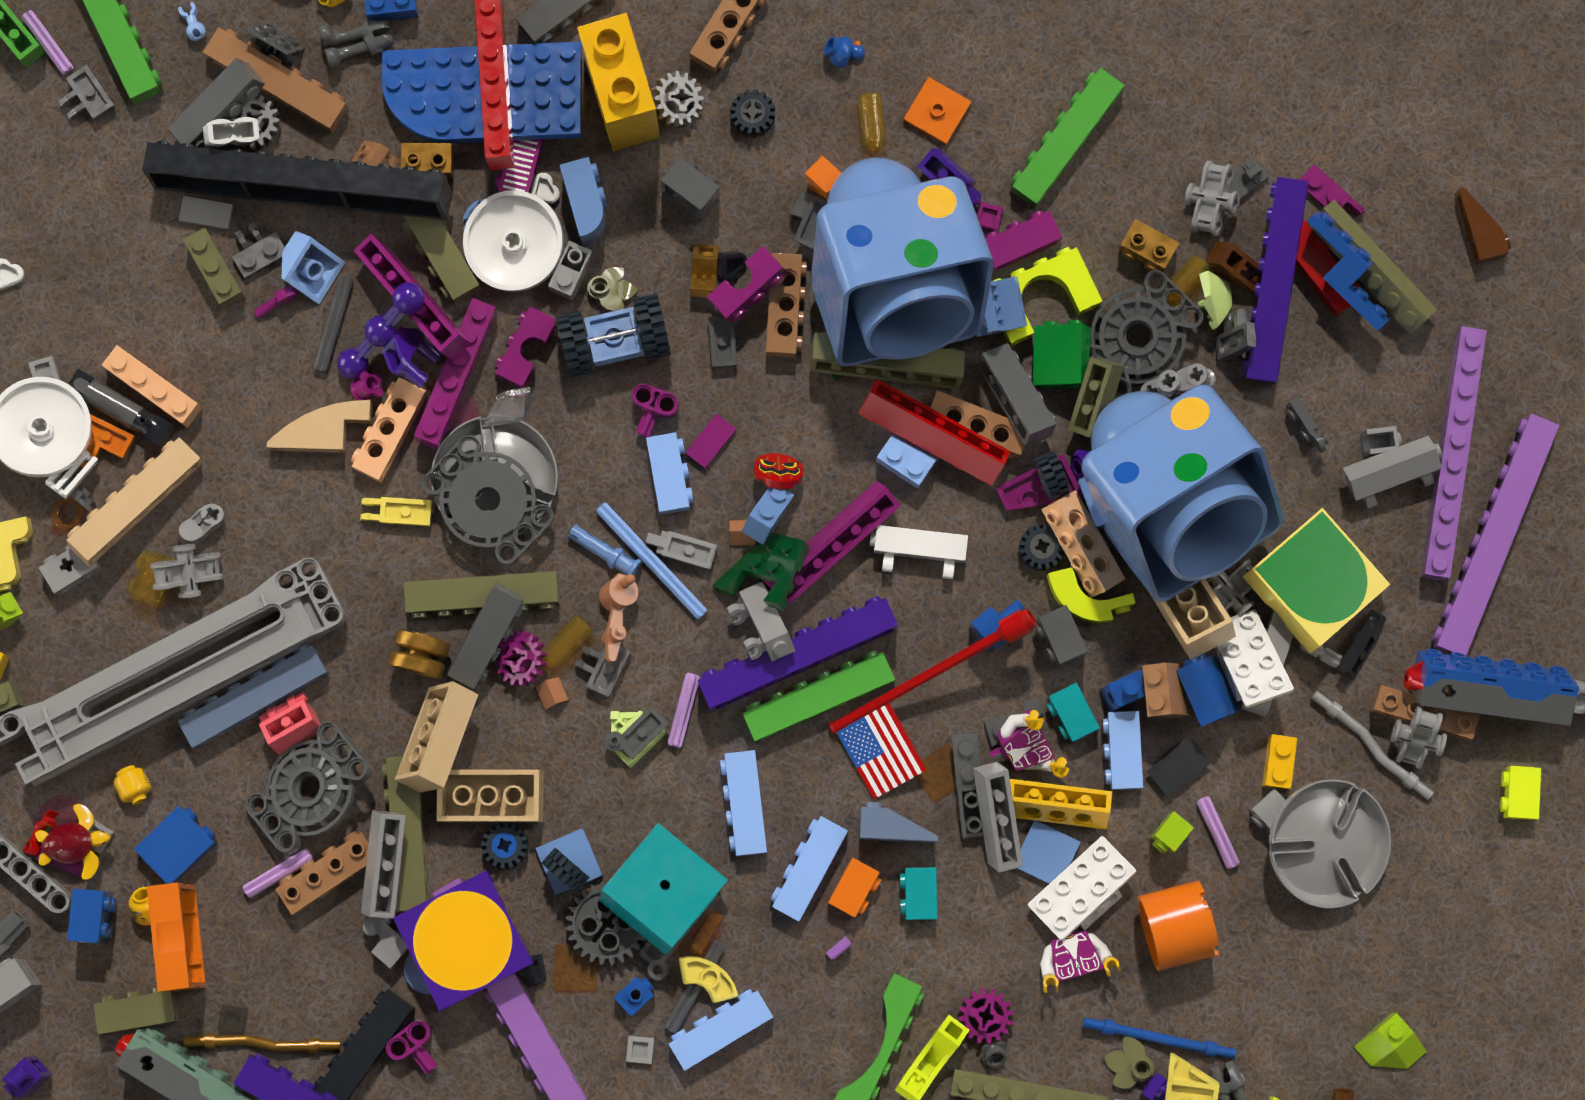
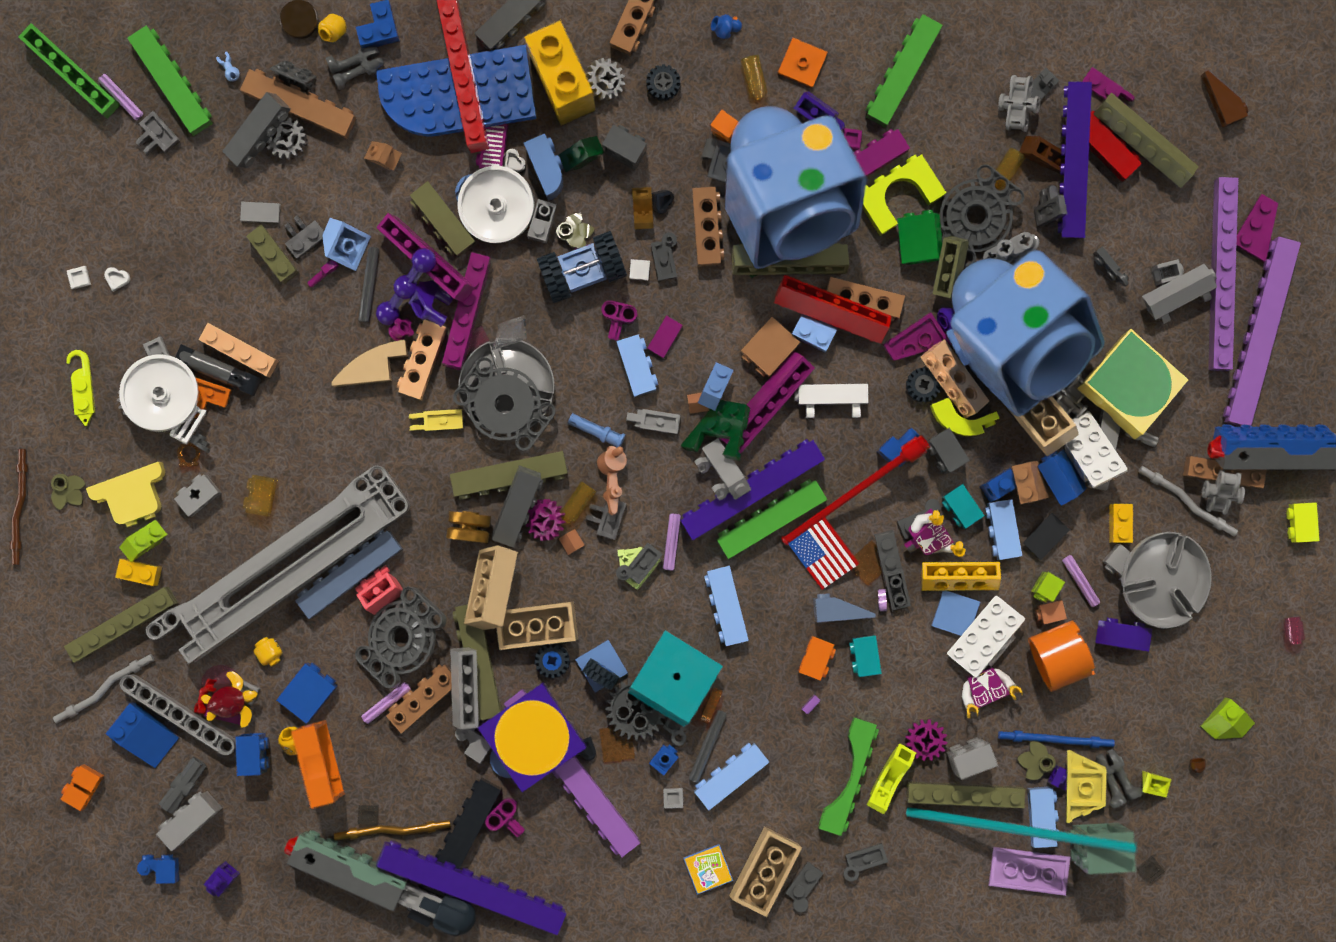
camera: 10 degrees left, 5 degrees up
(133, 502) = (238, 439): tan brick -> none
(135, 1011) = (294, 820): olive brick -> none
(186, 571) = (285, 487): light grey axle -> none
(208, 517) = (284, 456): light grey piece -> none
(223, 131) = (275, 149): white brick -> none
(297, 180) = (326, 179): black piece -> none
(428, 156) = (422, 149): pearl gold brick -> none
(533, 327) = (508, 299): magenta arch -> none
(633, 190) = (581, 153): none -> dark green brick
(651, 560) = (633, 433): light blue axle -> none
(689, 350) = (639, 269): none -> white tile
(709, 976) = (716, 737): light yellow tile -> none
(765, 274) = (690, 205): magenta arch -> none
(778, 470) = (719, 353): red tile -> none
(809, 868) = (781, 648): light blue brick -> none
(845, 472) = (769, 347): none -> medium nougat brick
(951, 822) = (882, 600): none -> lavender tile
(994, 1054) = (936, 767): dark grey plate -> none
(998, 816) = (917, 592): light grey brick -> none
(1003, 307) = (875, 208): medium blue bracket -> none
(1017, 394) = (891, 272): dark grey brick -> none
(1041, 1046) = (971, 758): none -> light grey brick
(1052, 476) = (925, 331): black wheel -> none
(1150, 242) = (976, 143): pearl gold brick -> none
(1172, 867) = (1050, 612): none -> nougat brick
(1218, 298) = (1033, 179): yellowish green slope -> none
(1264, 910) = (1123, 635): none -> dark purple brick
(1348, 269) = (1130, 145): blue bracket -> none
(1362, 645) = (1172, 427): black hinge -> none
(1492, 934) = (1294, 630): none -> clear pink brick
(1505, 401) = (1257, 228): none -> magenta wing

